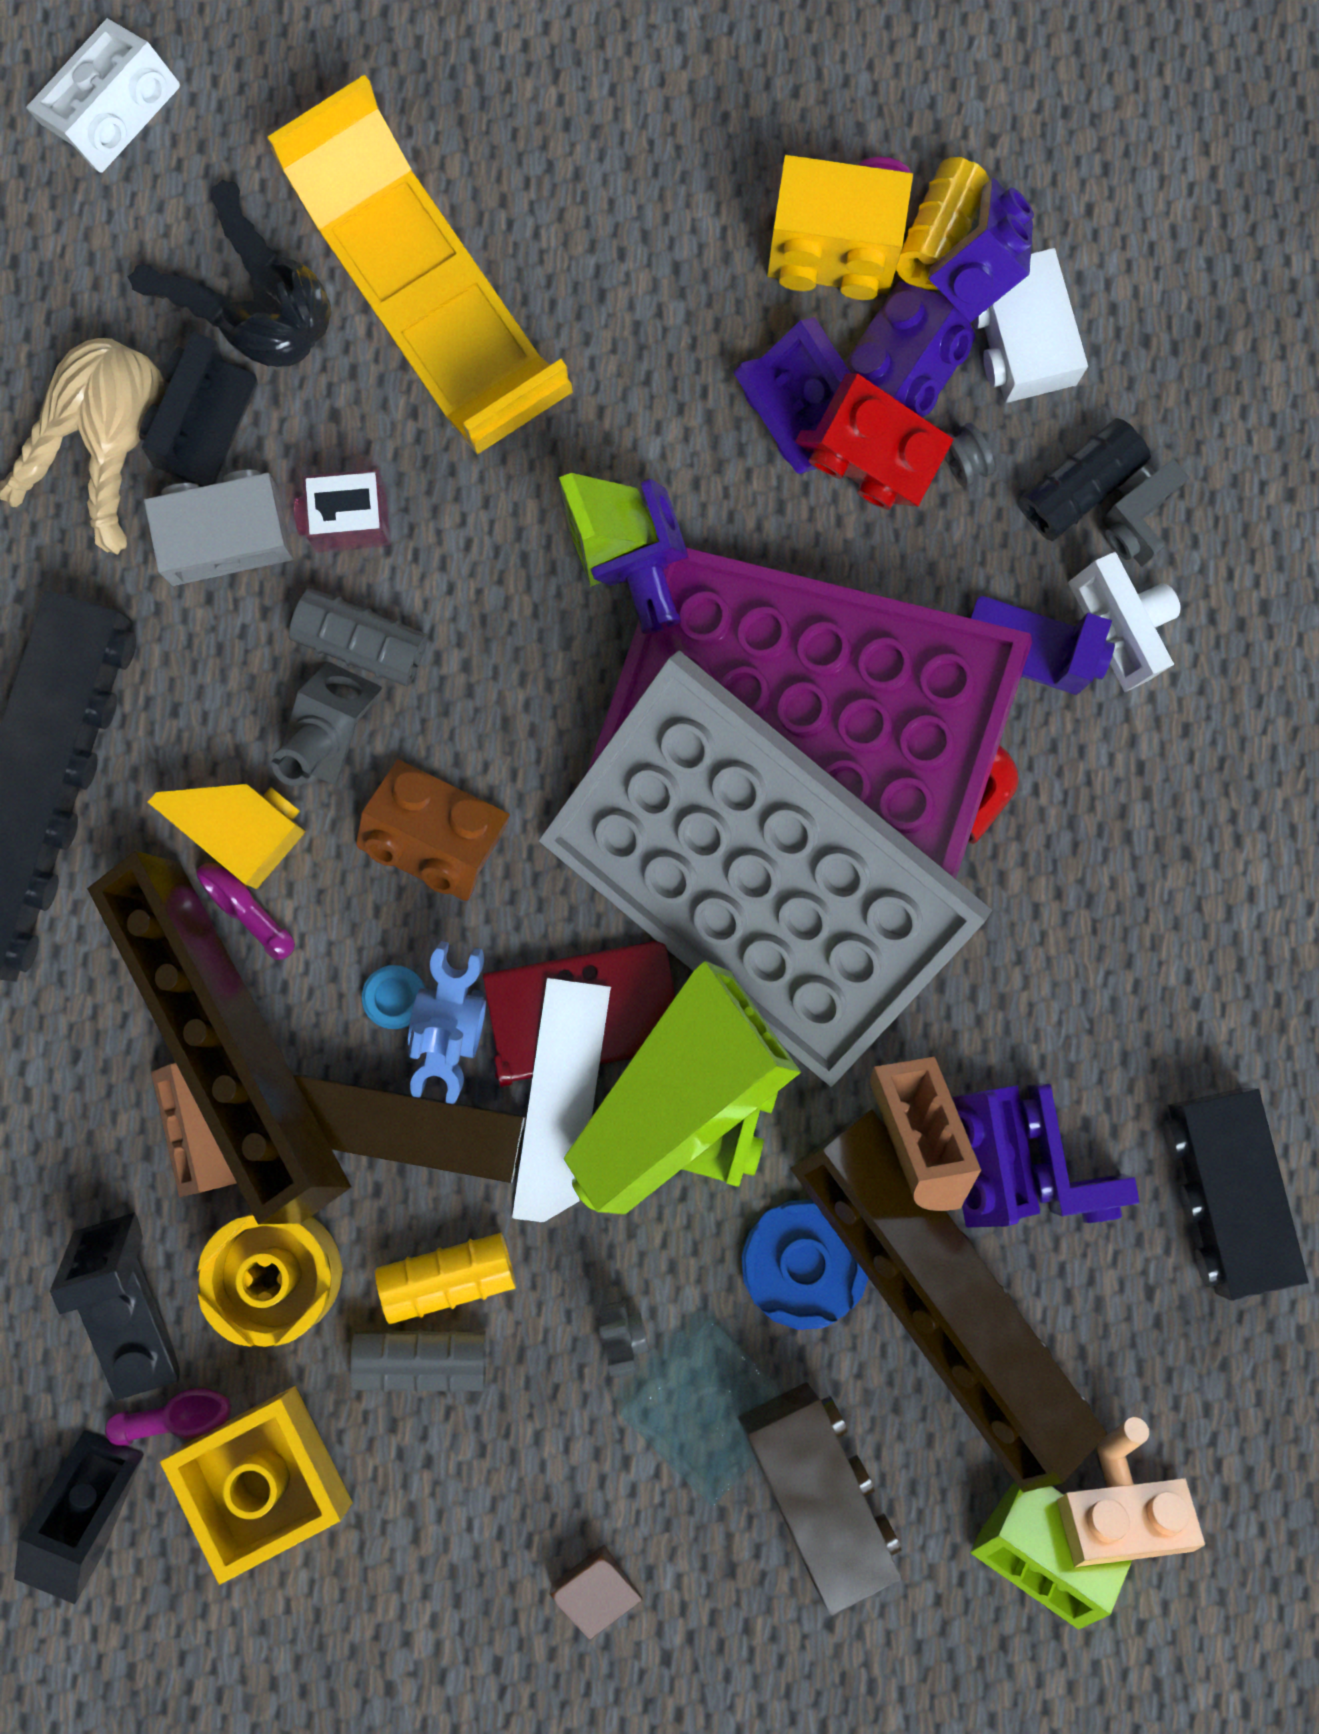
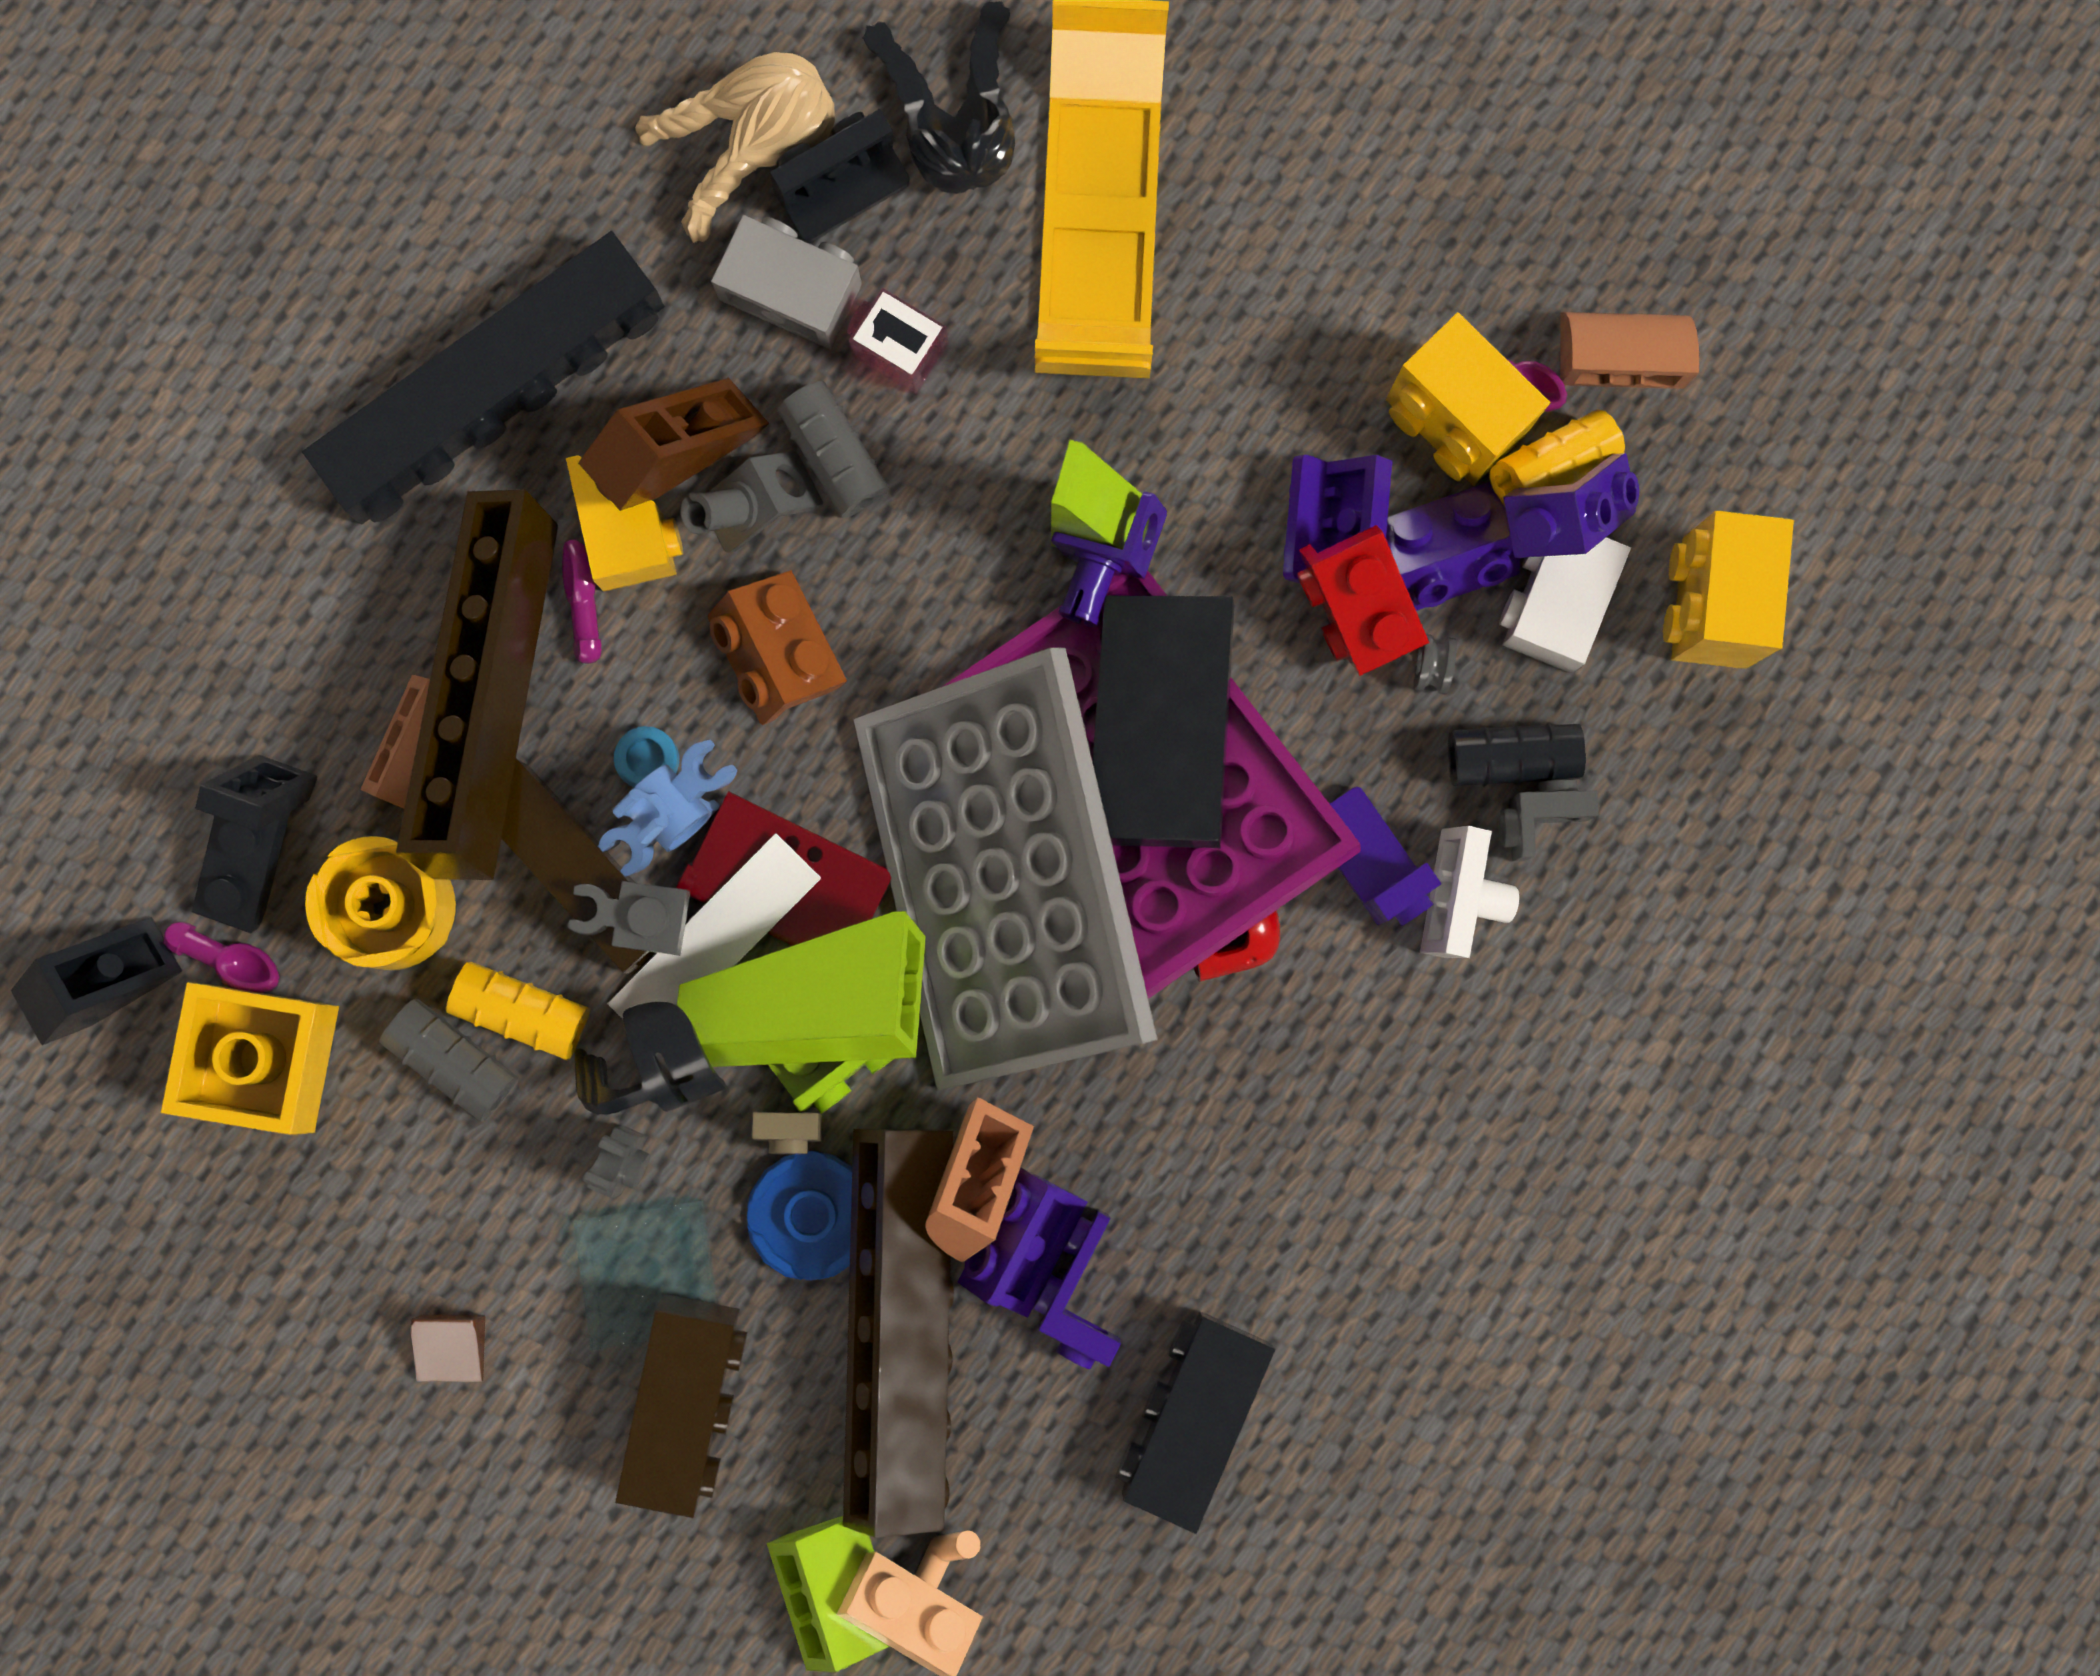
camera: 35 degrees right, 0 degrees up
(222, 726) = (669, 440): none -> reddish brown slope
(493, 1125) = (642, 918): none -> dark grey plate
(571, 1213) = (651, 1030): none -> black helmet
(739, 1210) = (788, 1131): none -> dark tan plate
(794, 651) = (1163, 718): none -> black tile
(930, 97) = (1628, 350): none -> nougat brick
(1157, 223) = (1730, 590): none -> yellow brick

